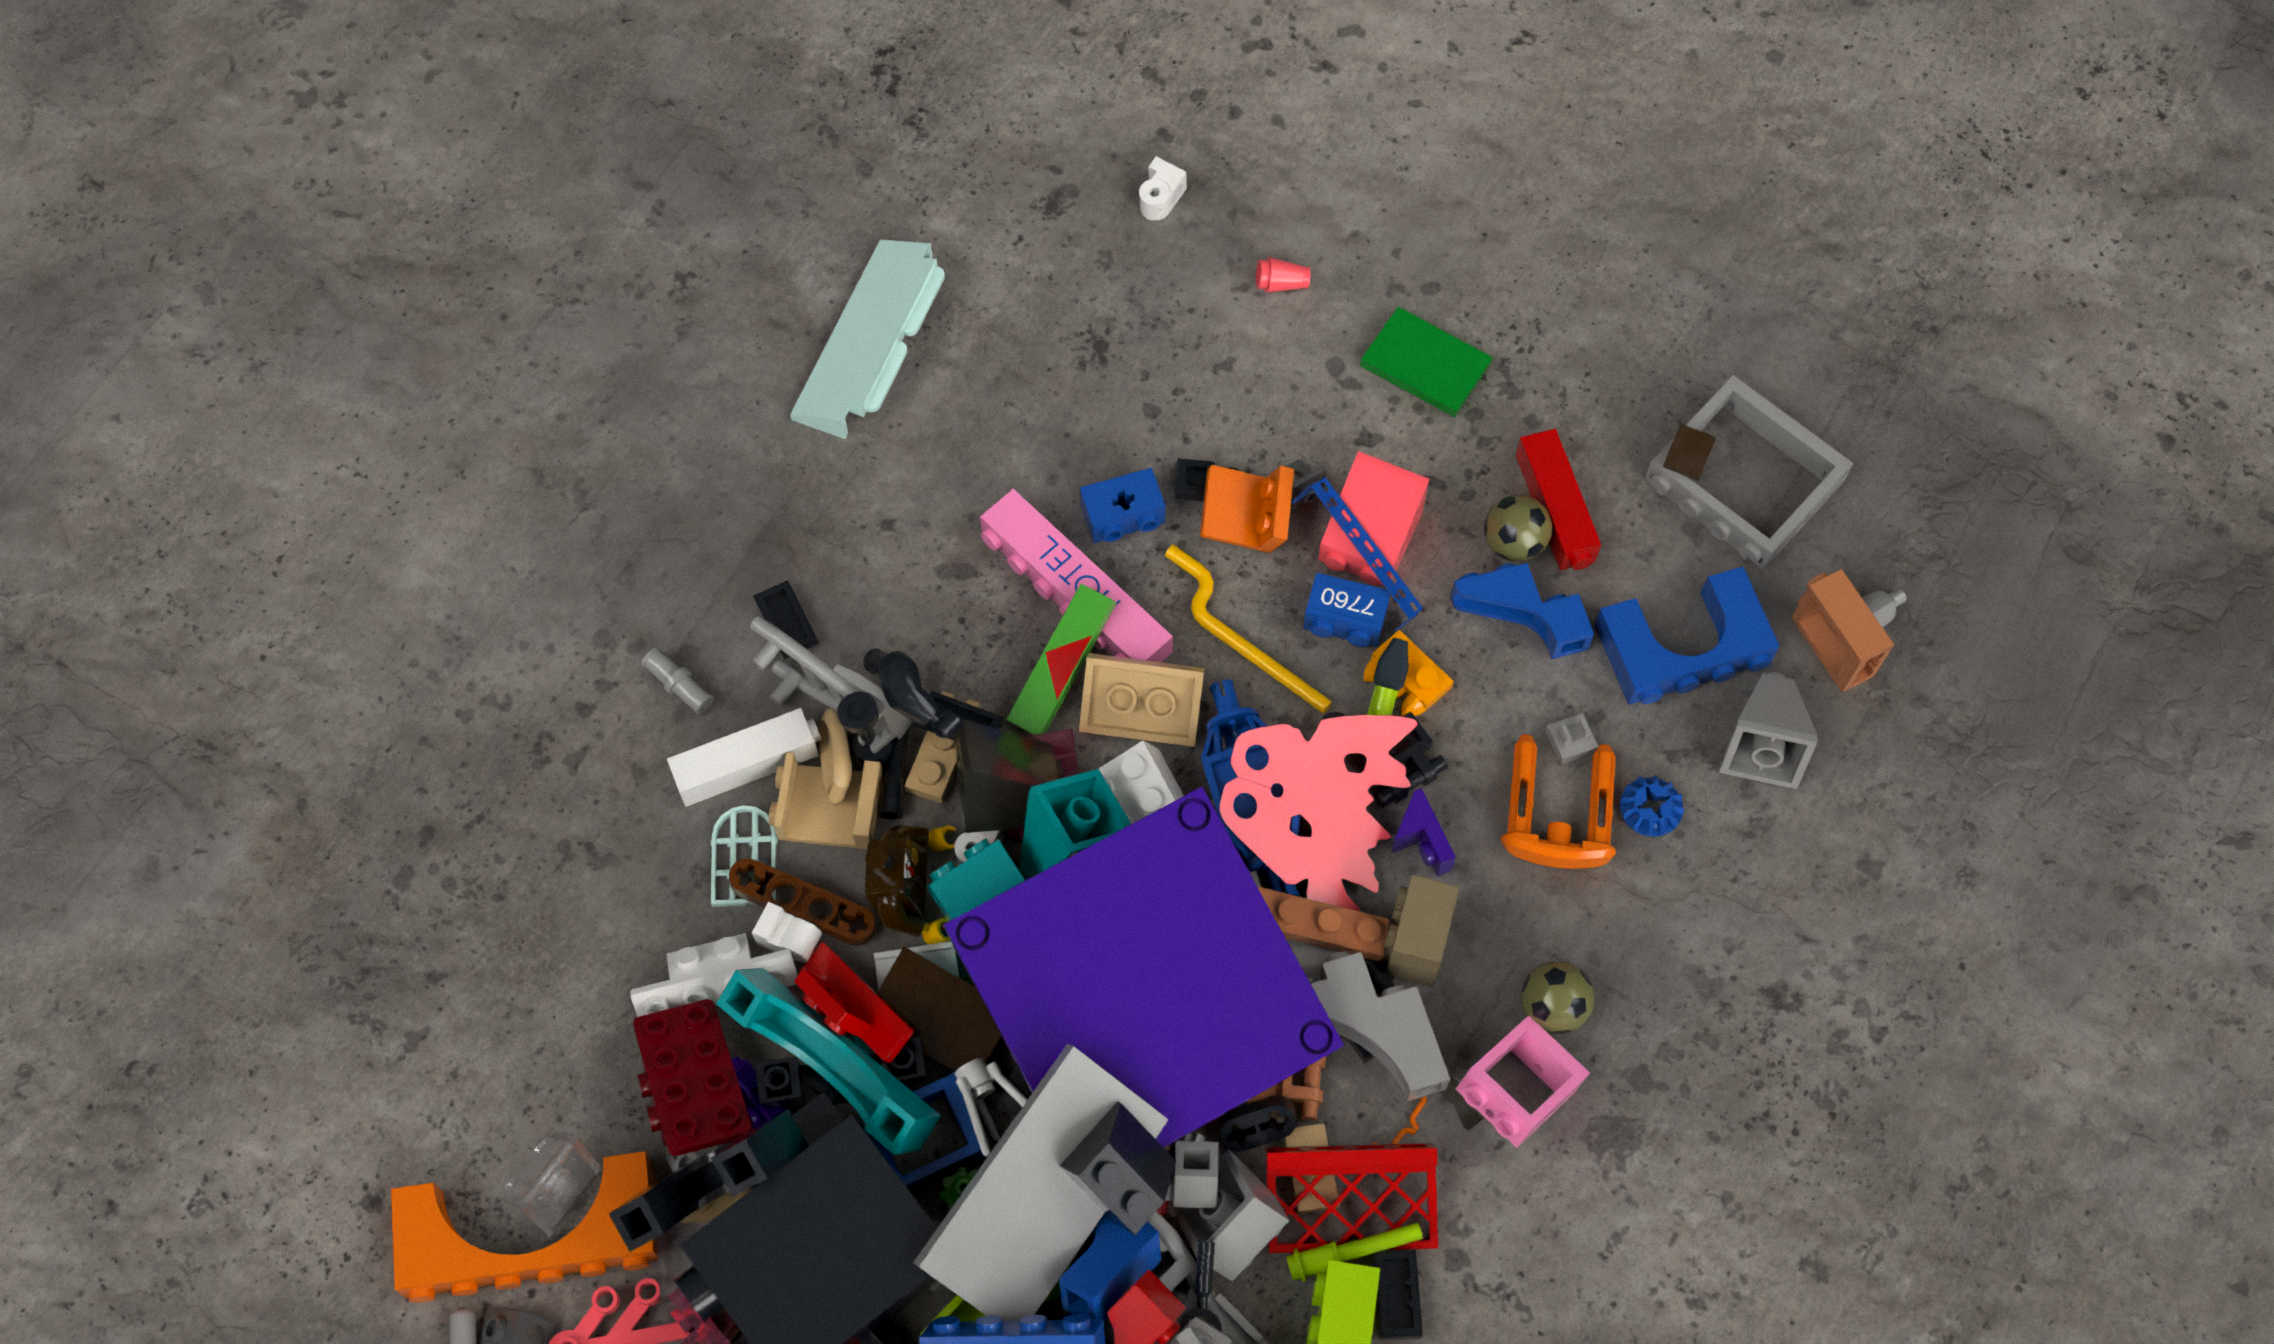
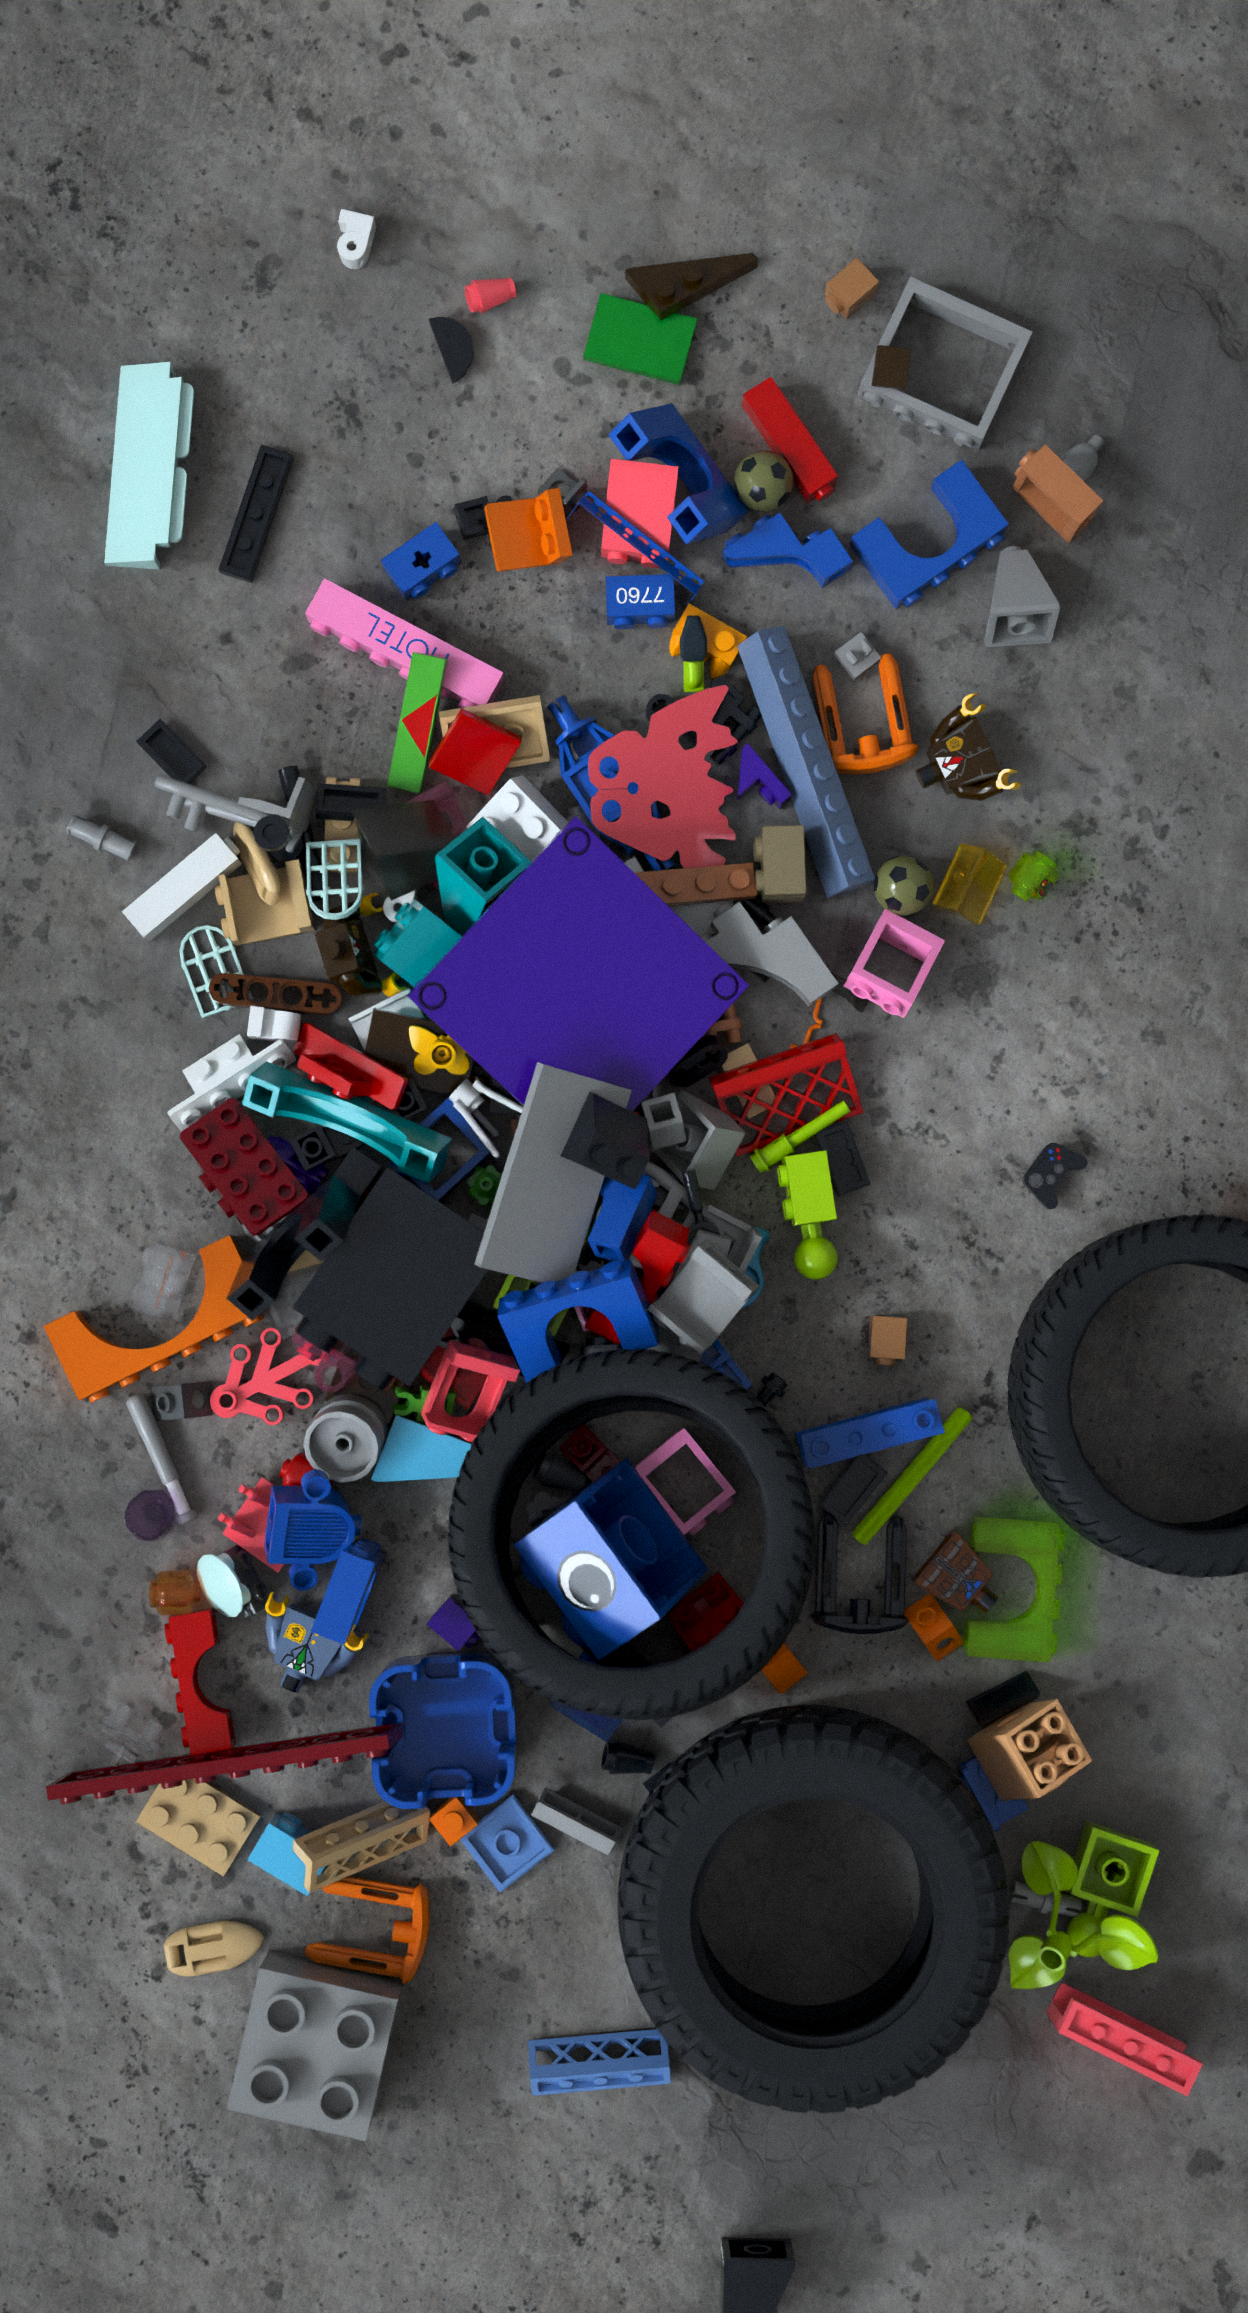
camera: 20 degrees left, 20 degrees up
(904, 691) = (303, 803): black arm -> none
(924, 784) = (342, 868): none -> light aqua window
(960, 1017) = (436, 1052): none -> yellow animal
(965, 414) = (256, 513): none -> black tile
(1114, 707) = (475, 751): none -> red tile
(1228, 314) = (454, 345): none -> black tile
(1236, 641) = (553, 654): yellow piece -> none
(1450, 529) = (664, 435): none -> blue arch
(1482, 321) = (678, 284): none -> dark brown wing
(1482, 833) = (805, 761): none -> sand blue brick
(1637, 1021) = (970, 883): none -> clear yellow panel
(1645, 820) = (921, 692): blue gear -> none
(1665, 373) = (850, 289): none -> medium nougat brick
(1665, 878) = (964, 758): none -> dark brown torso
(1713, 1034) = (1033, 876): none -> clear neon green head

